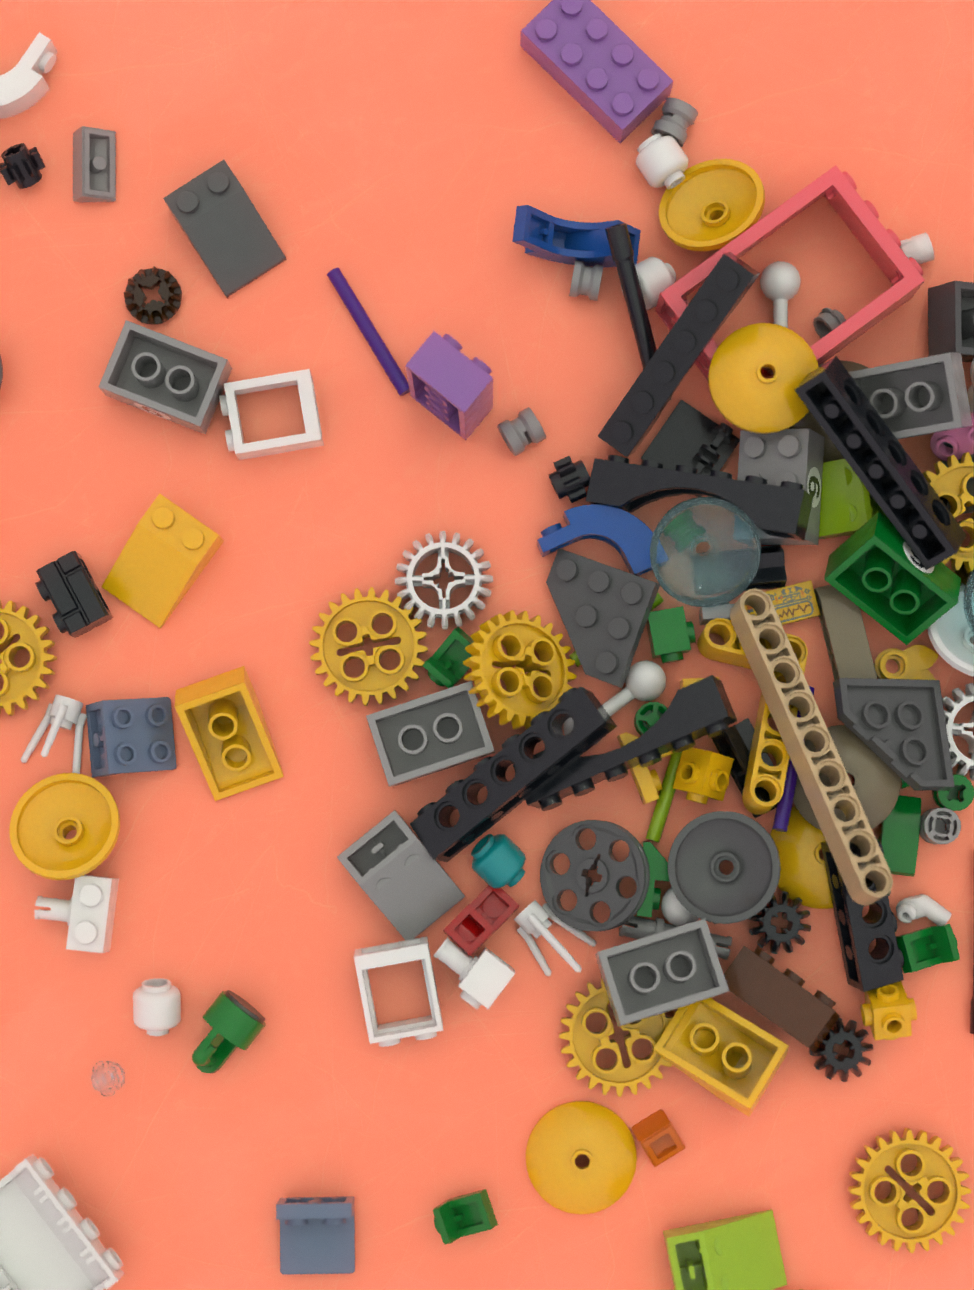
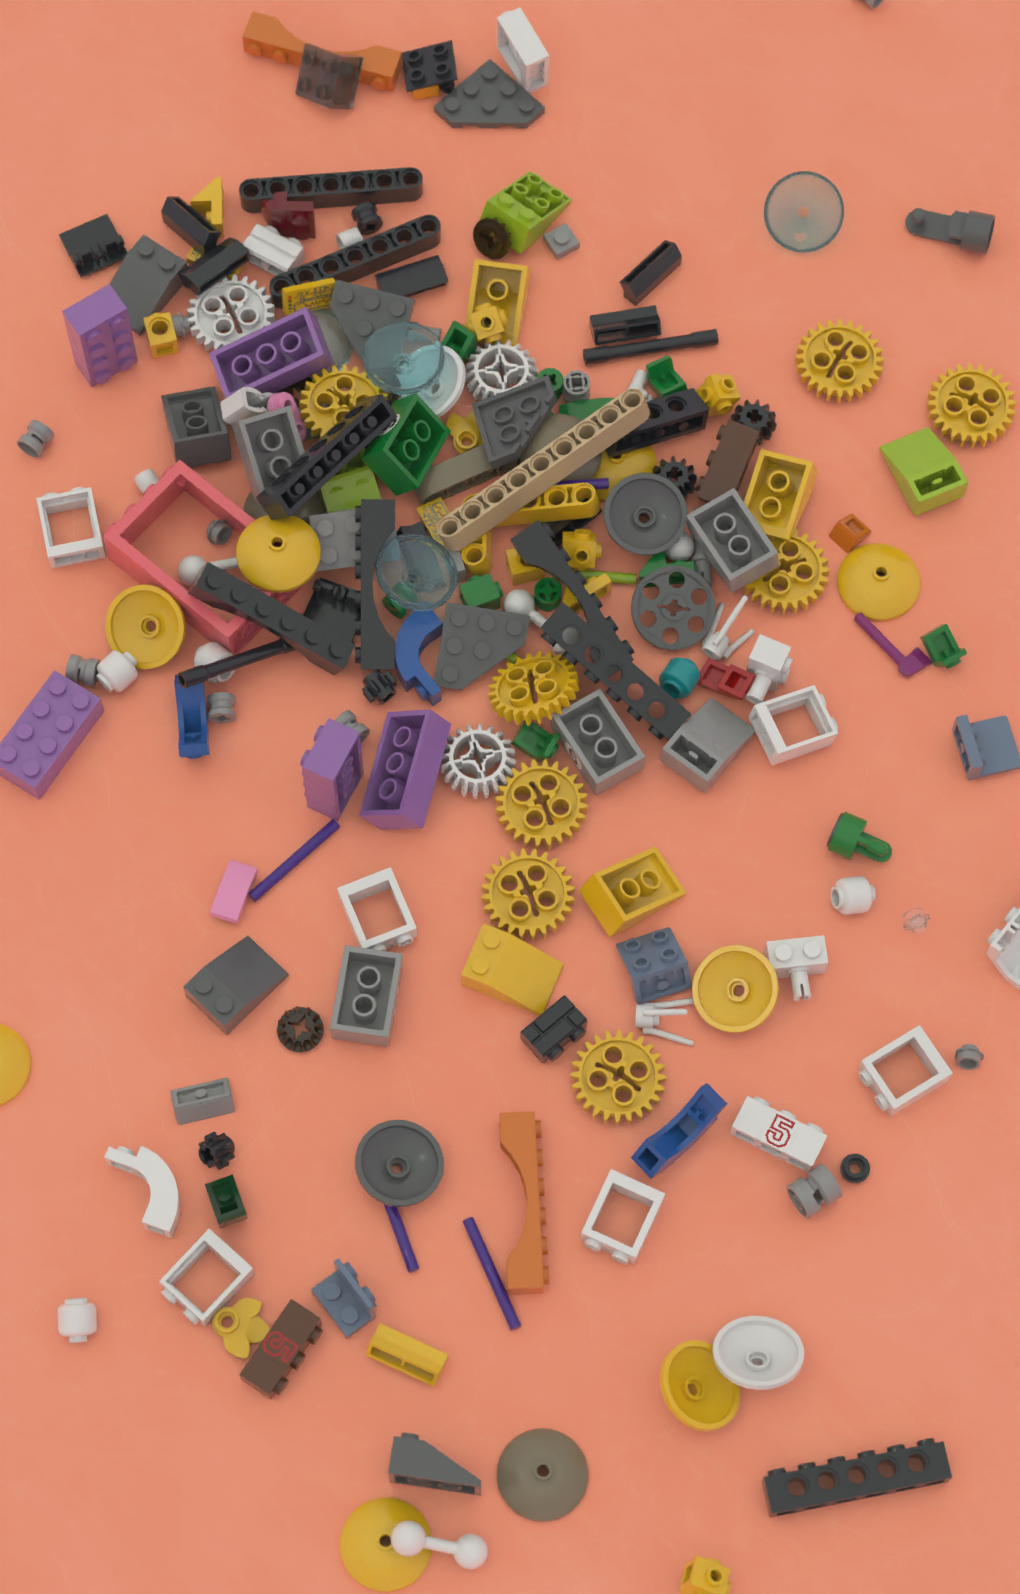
camera: 105 degrees left, 15 degrees down
(251, 569) = (552, 886): none -> yellow gear
(343, 249) = (233, 891): none -> bright pink slope
(443, 483) = (405, 769): none -> medium lavender brick
(453, 1162) = (907, 665): none -> magenta piece
(876, 111) = (76, 551): none -> white window

